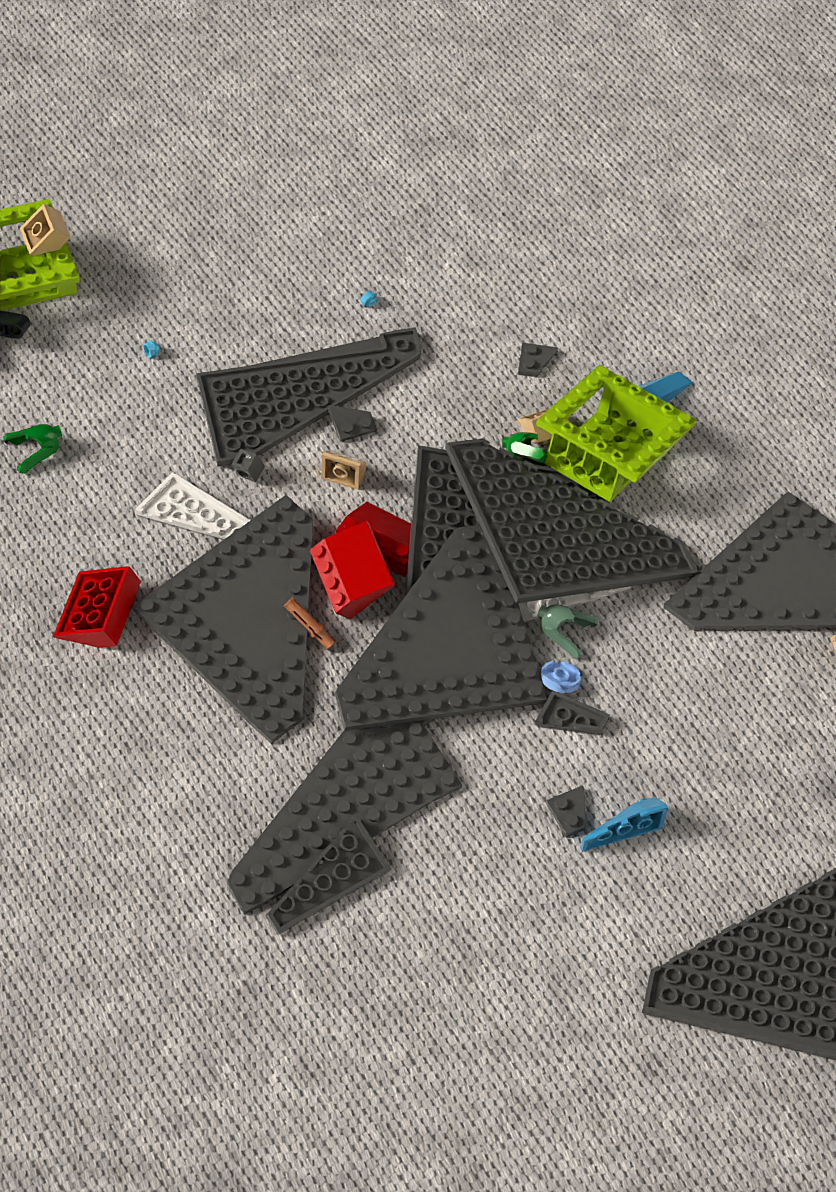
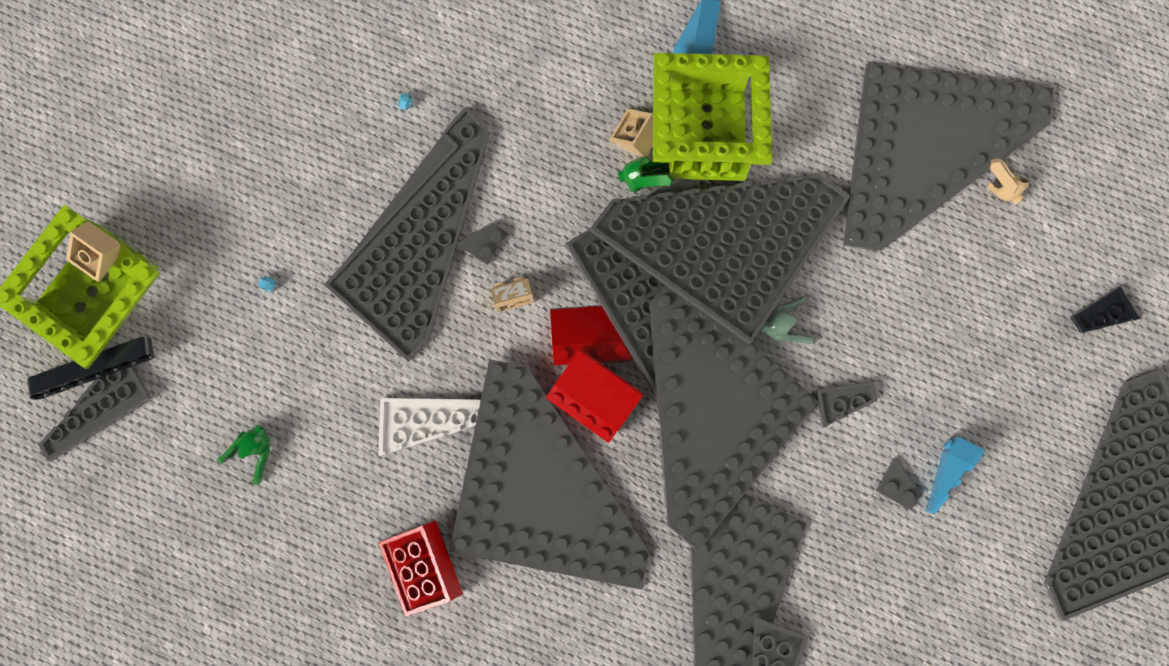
camera: 35 degrees left, 30 degrees up
(248, 465) = (436, 349): dark grey brick -> none
(310, 623) = (604, 467): nougat pin -> none
(535, 358) = (580, 67): dark grey wing -> none
(560, 676) = (813, 372): light blue tile -> none

